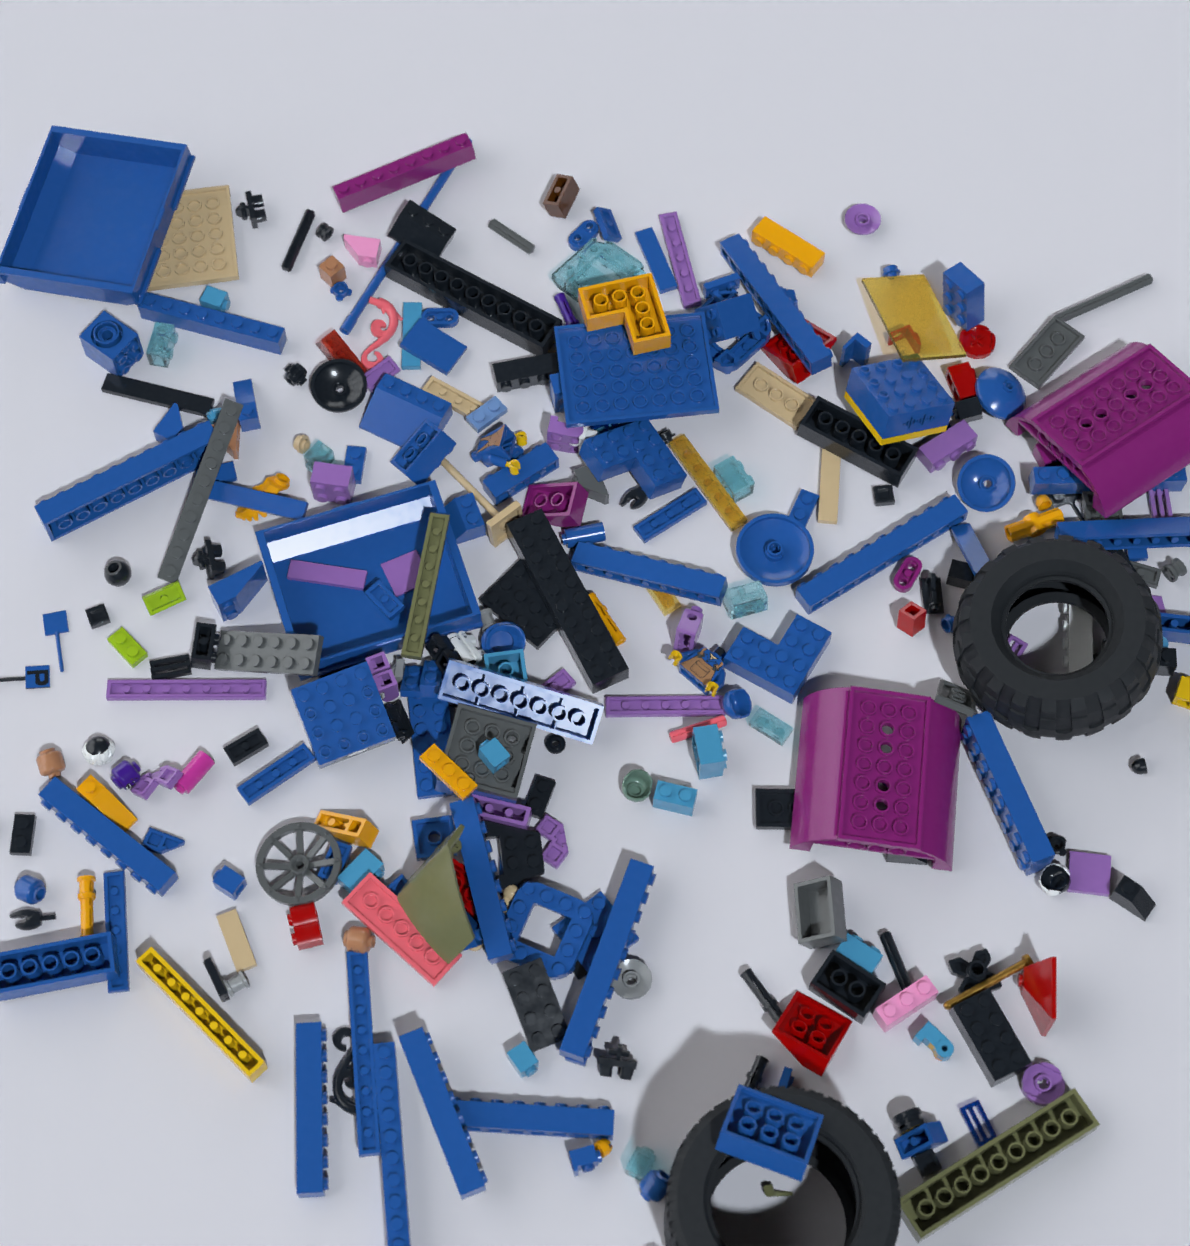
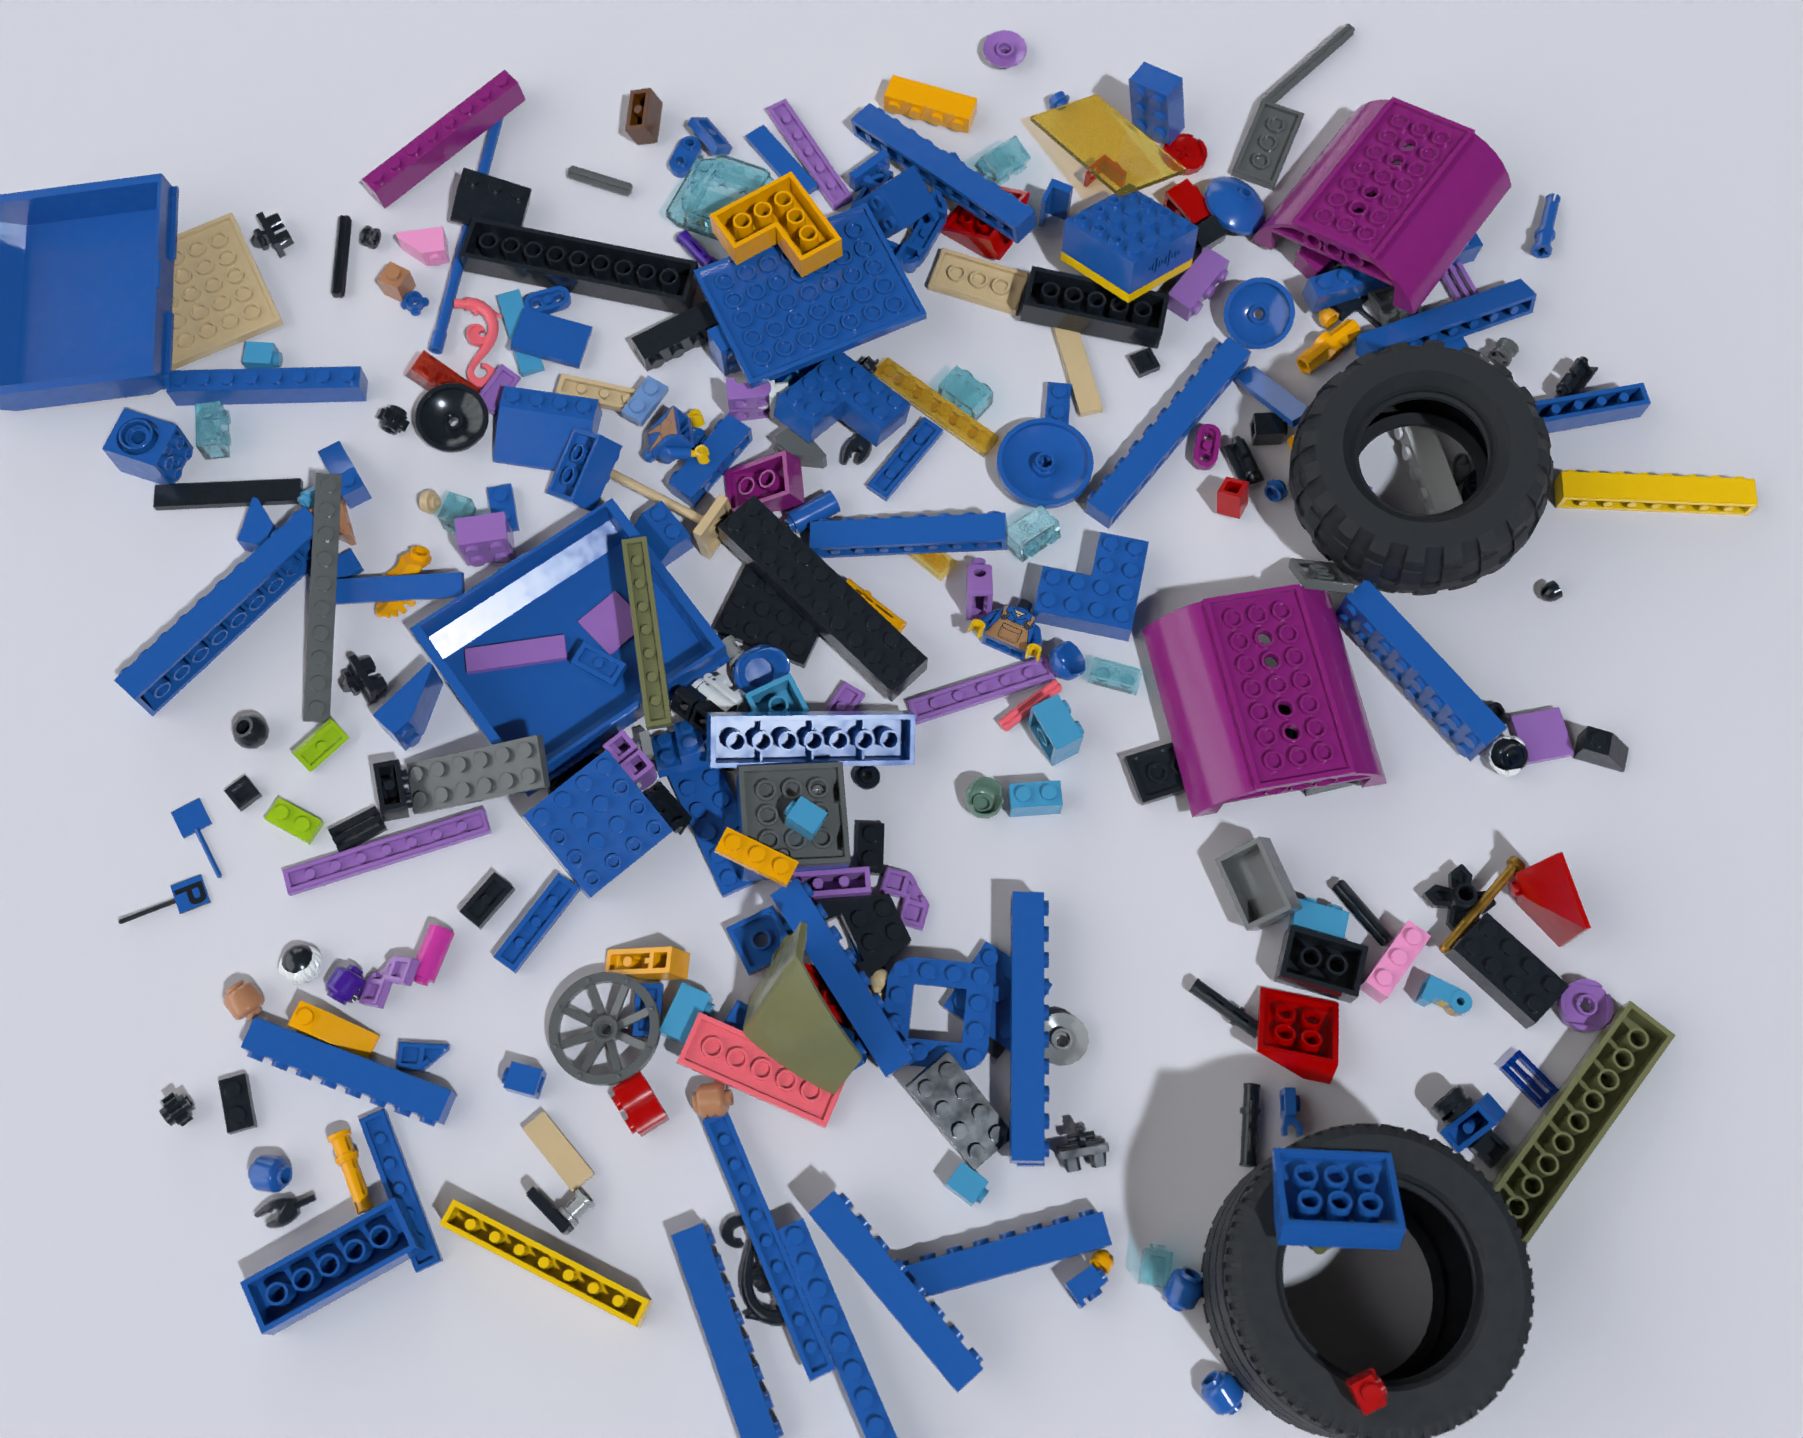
camera: 20 degrees left, 5 degrees up
(827, 308) = (1003, 161): none -> clear light blue brick

